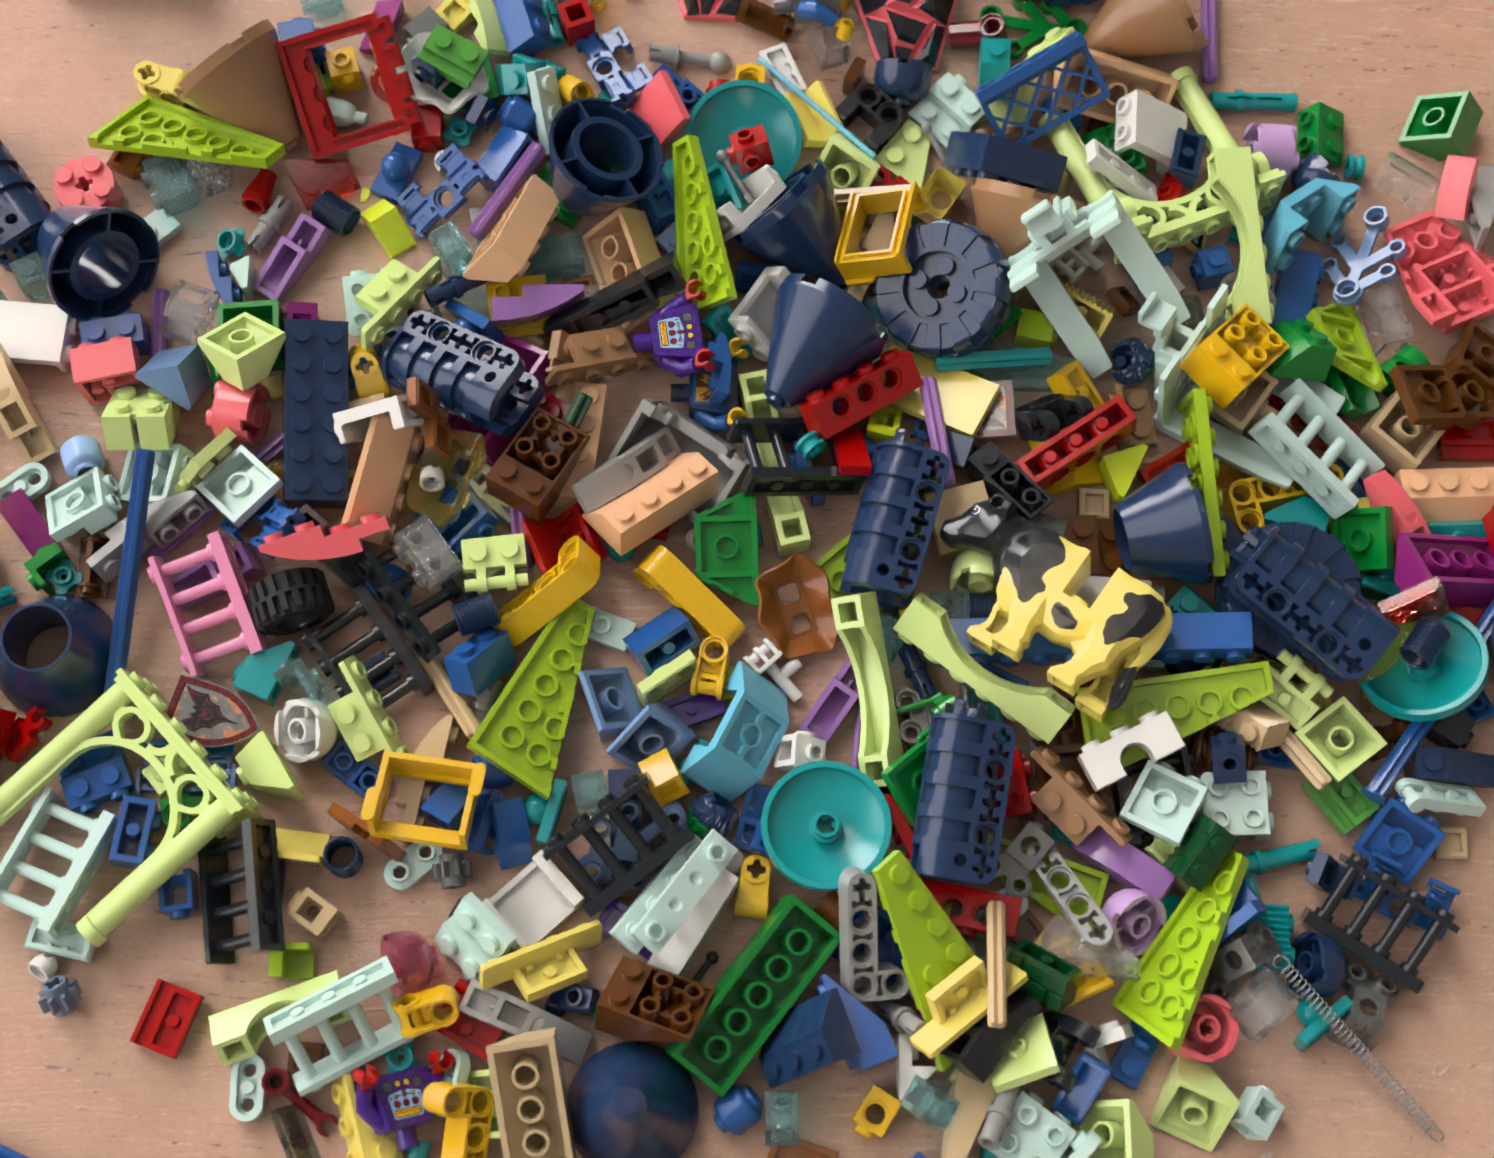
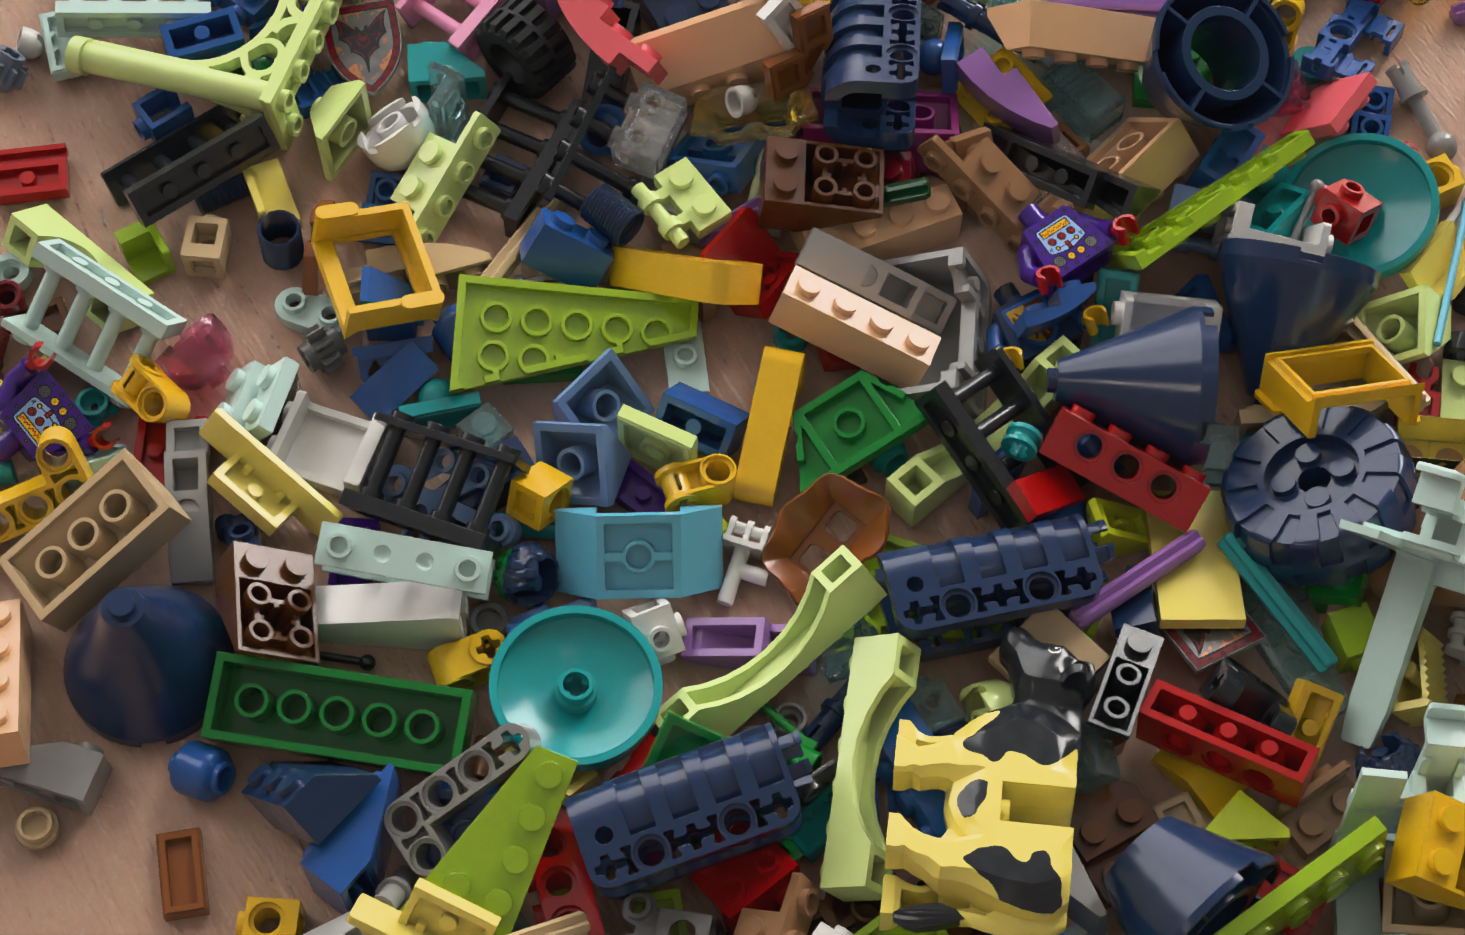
camera: 65 degrees right, 10 degrees down
(781, 1118) = (212, 820): clear light blue brick -> none

